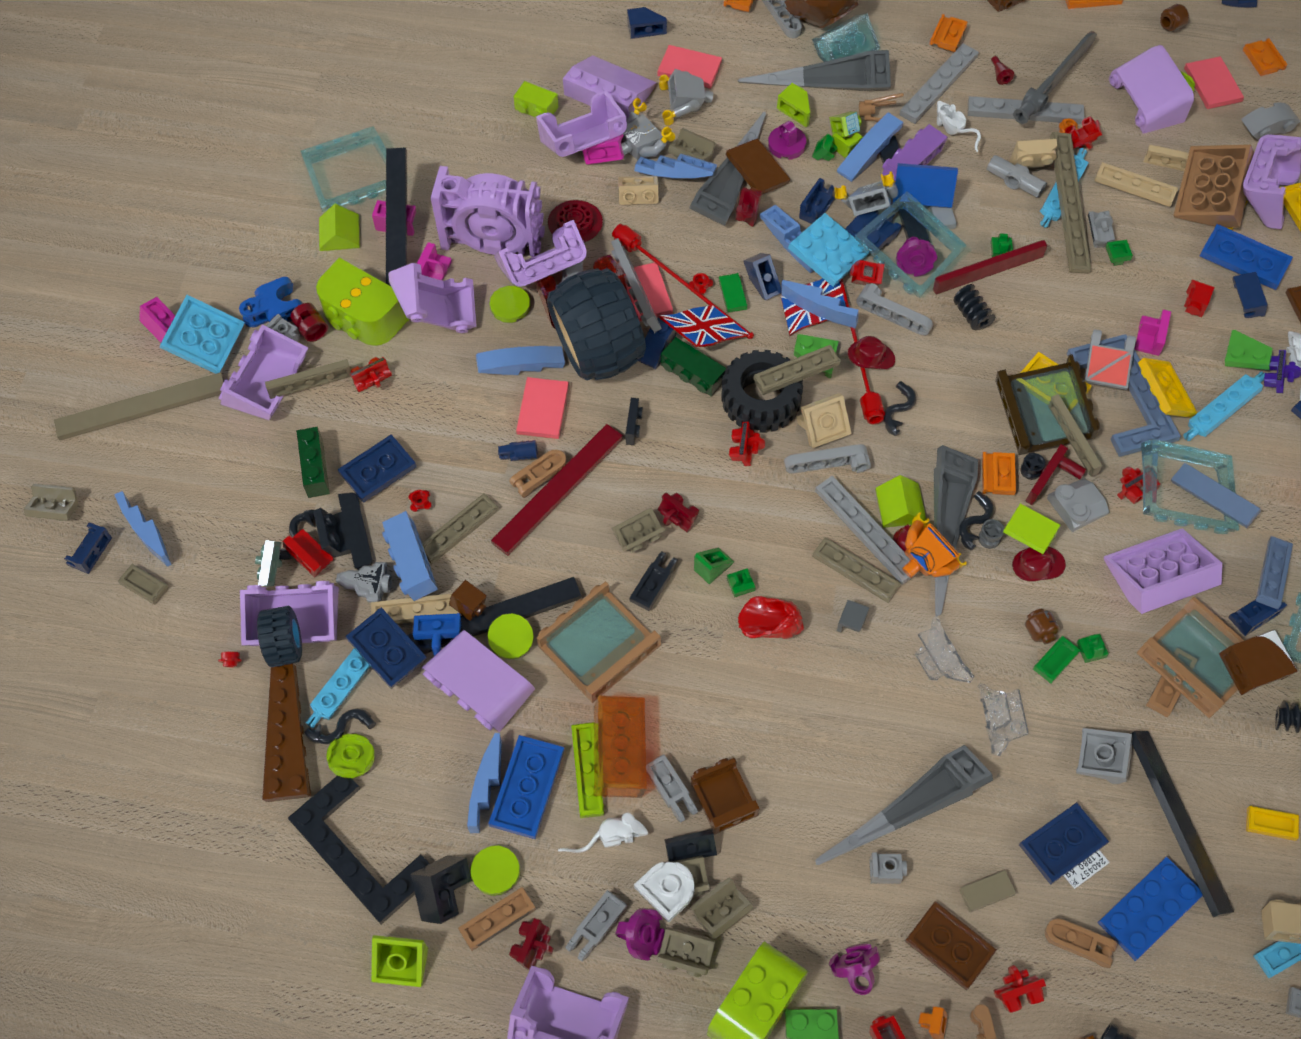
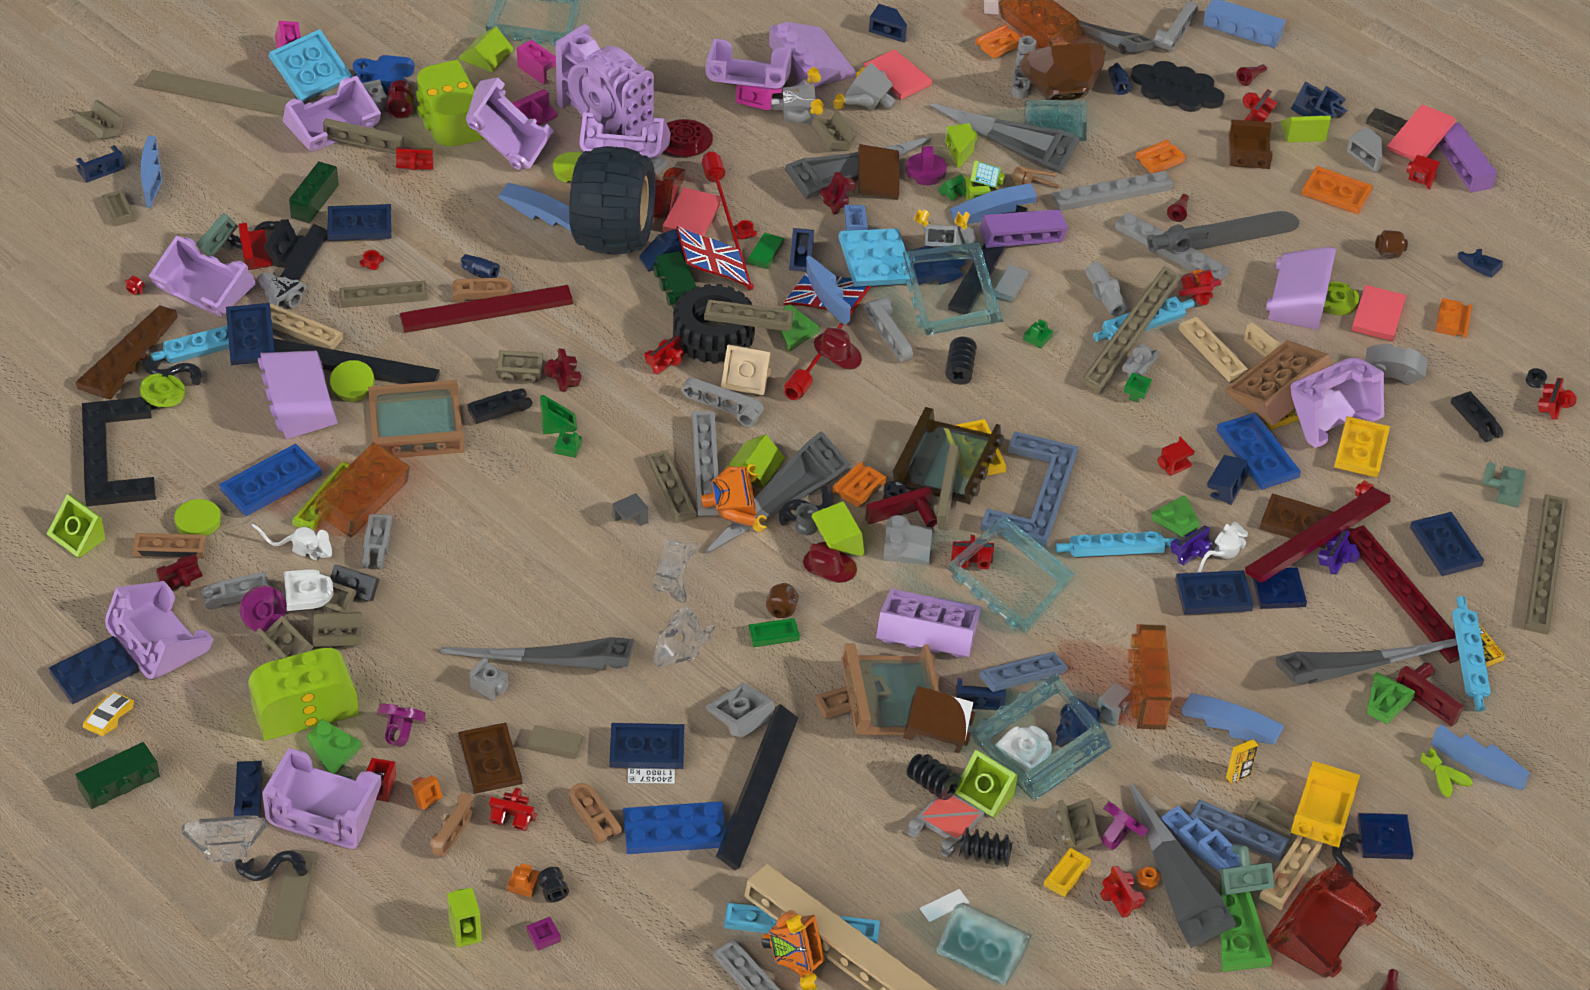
camera: 30 degrees right, 15 degrees down
(279, 636) = (179, 282): black wheel -> none
(396, 209) = (540, 49): black tile -> none
(409, 556) = (325, 286): medium blue brick -> none
(436, 628) = (300, 340): blue plate -> none
(436, 885) = (142, 498): black panel -> none
(468, 600) = (339, 335): reddish brown brick -> none
(488, 775) = (241, 458): medium blue slope -> none
(535, 100) = (737, 34): lime brick -> none
(542, 408) = (528, 249): coral tile -> none
(632, 428) = (589, 293): black plate -> none
(636, 290) = (680, 197): light grey plate -> none
(638, 190) = (758, 139): tan bracket -> none
(683, 167) = (808, 138): medium blue slope -> none
(723, 795) = (412, 566): reddish brown panel -> none
(770, 618) = (565, 477): red hair -> none
(816, 202) = (902, 218): dark blue hinge -> none
(867, 272) = (890, 287): red window -> none
(890, 424) = (804, 406): black animal -> none
(916, 257) = (944, 298): magenta tile -> none
(927, 183) = (1006, 248): blue tile -> none
(953, 121) = (1090, 221): white animal -> none
(989, 267) = (1011, 340): dark red tile -> none
(1034, 153) = (1131, 274): tan slope -> none
(1092, 648) = (812, 640): green tile -> none
(1108, 364) = (1037, 458): flag -> none
(1152, 333) = (1108, 461): dark pink panel -> none
(1167, 388) = (1071, 500): yellow plate -> none
(1216, 495) = (1030, 594): sand blue tile -> none
(1272, 823) = (837, 834): yellow tile -> none

